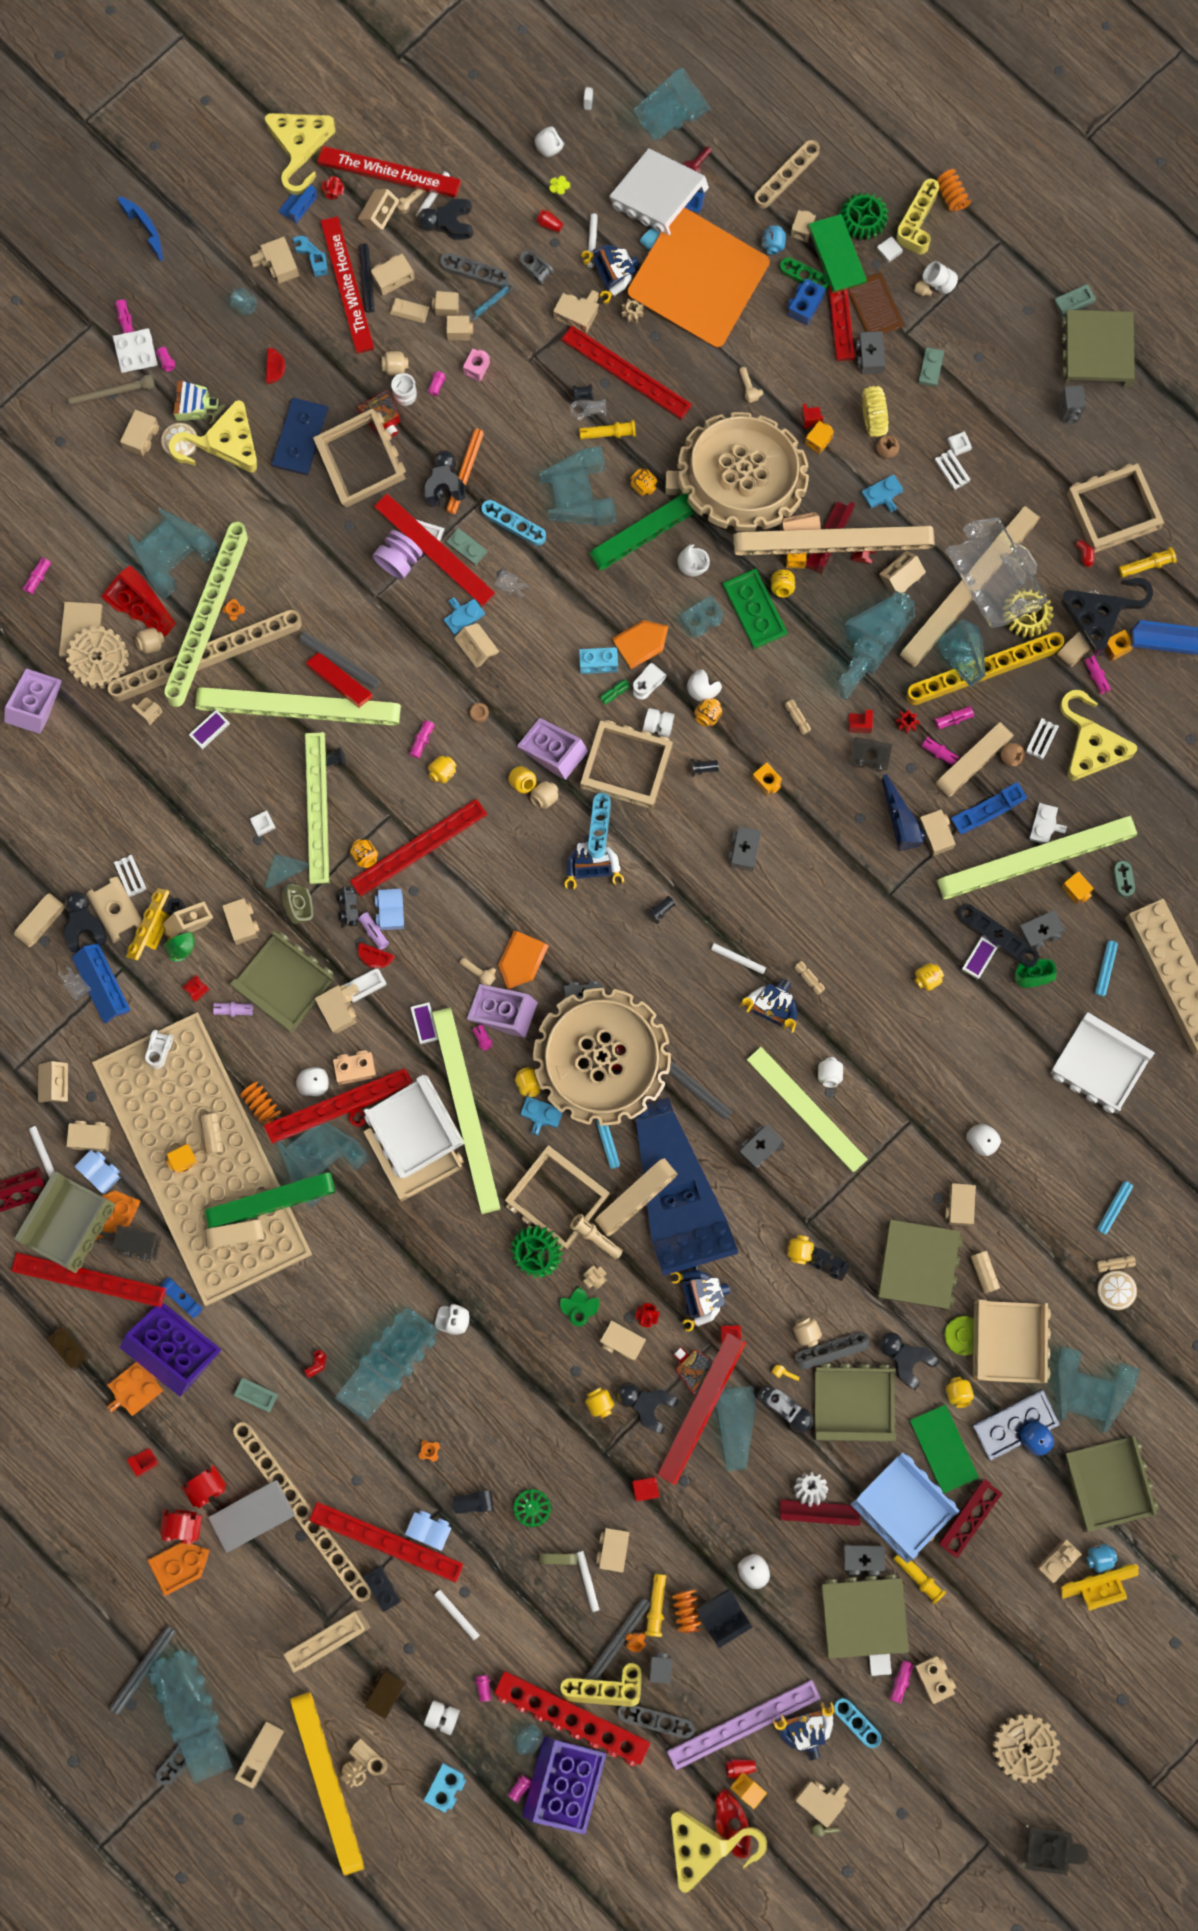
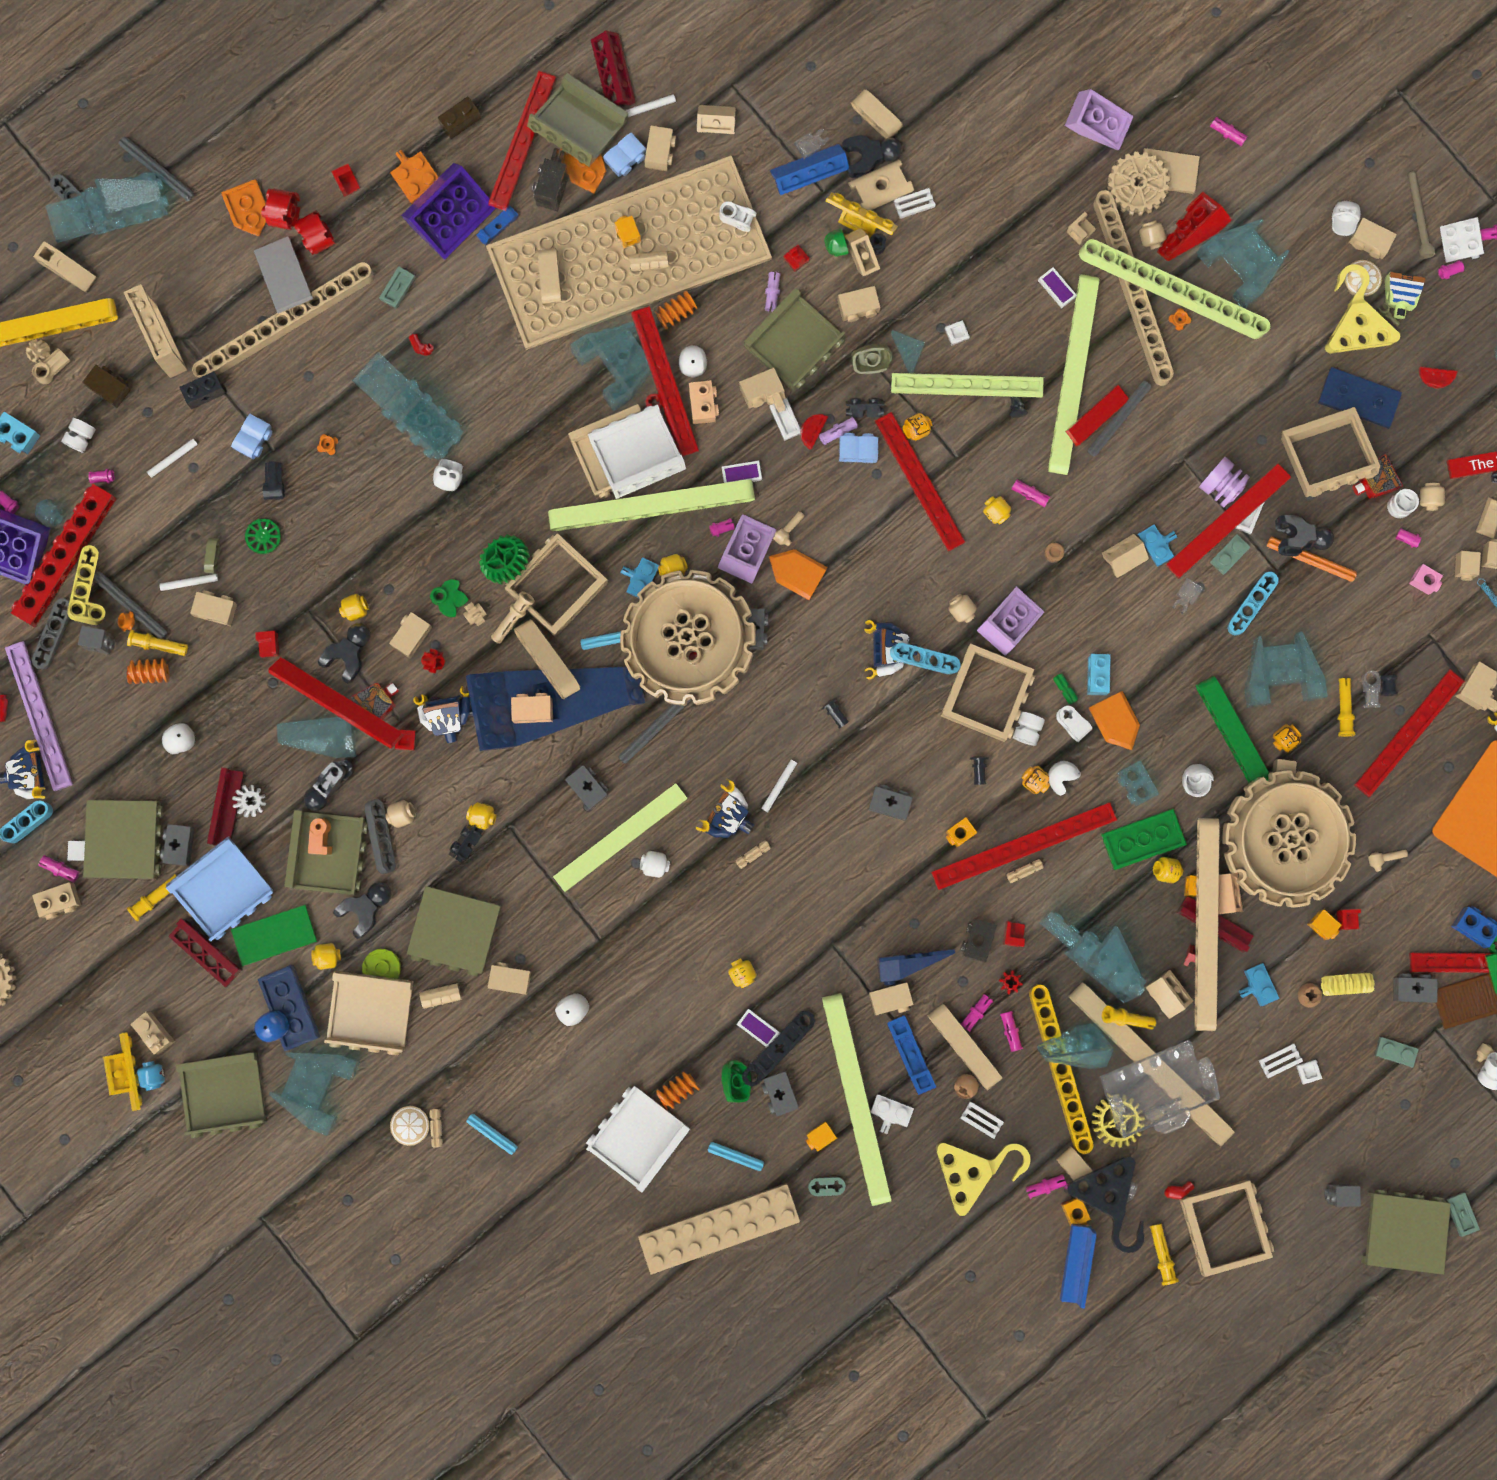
camera: 90 degrees right, 5 degrees up
(120, 459) = (1345, 218): none -> white helmet
(270, 1201) = (576, 309): green beam -> none
(386, 1542) = (245, 396): red tile -> none
(522, 779) = (979, 587): yellow head -> none
(632, 315) = (1482, 744): tan gear -> none
(690, 1205) = (532, 709): none -> light nougat brick
(723, 1618) = (136, 706): black bracket -> none
(774, 719) = (1023, 846): none -> red plate
(778, 1370) = (367, 782): yellow hand -> none
(840, 1412) = (319, 836): none -> orange leg
(931, 612) = (1122, 1017): none -> yellow pin
(1050, 1029) = (677, 1090): none -> orange piece

